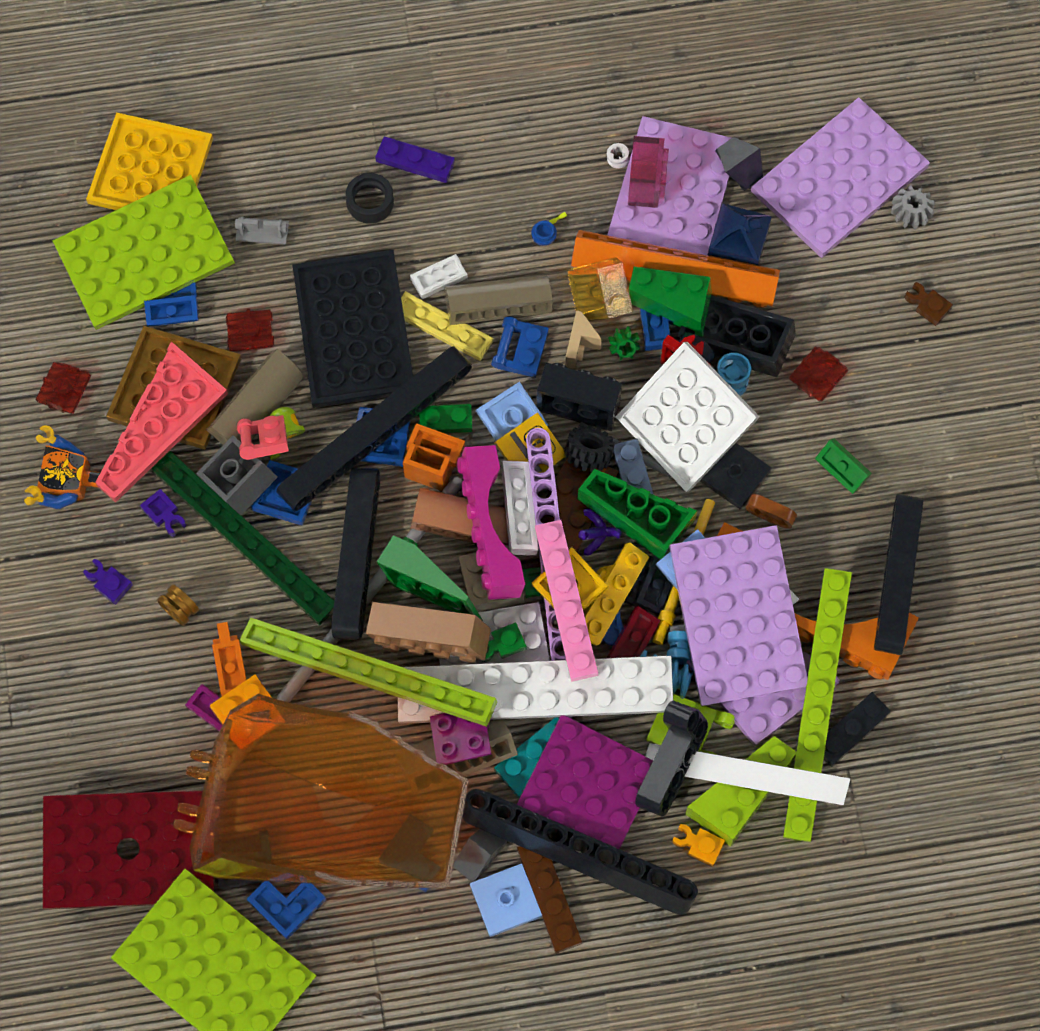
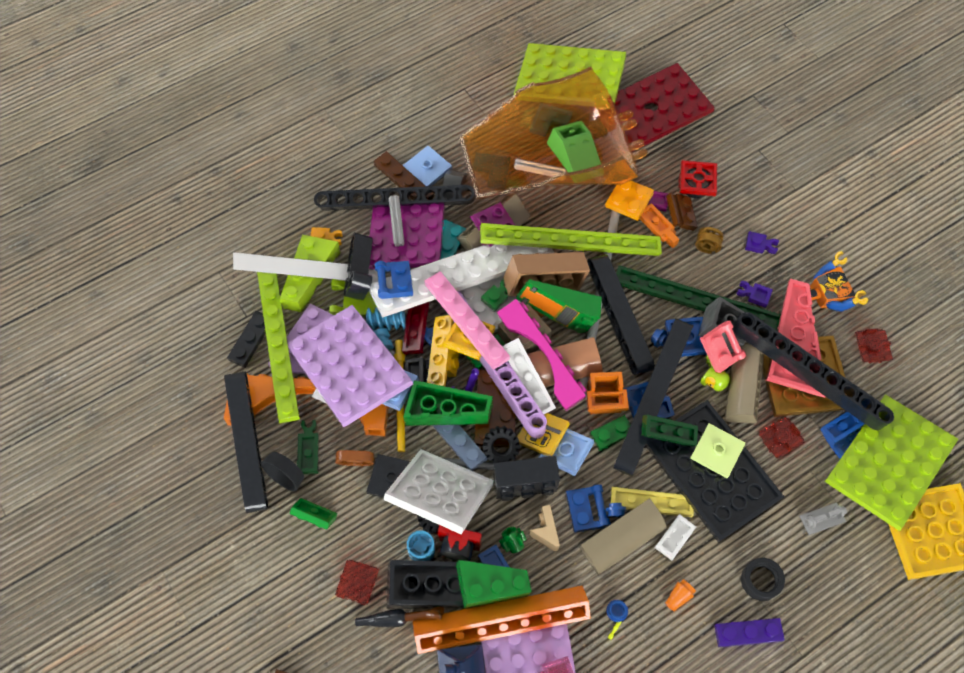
camera: 155 degrees right, 5 degrees down
(136, 701) = (699, 180): none -> red piece
(180, 375) = (855, 401): none -> black beam
(186, 666) = (682, 211): none -> reddish brown plate
(287, 804) = (574, 146): none -> bright green slope
(322, 505) = (659, 337): none -> blue plate
(337, 338) = (718, 450): none -> yellowish green plate
(354, 798) = (538, 168): none -> axle
(385, 371) = (669, 430): none -> dark green plate
(467, 219) = (680, 595): none -> orange cone
(491, 326) = (616, 510): none -> blue plate
(594, 800) = (396, 220): none -> light grey axle
(600, 289) = (549, 571): clear yellow slope -> none
(628, 690) = (400, 279): none -> blue plate
(801, 319) = (398, 617): none -> black piece
(824, 545) = (308, 449): none -> dark green plate
(864, 520) = (283, 471): none -> black tyre

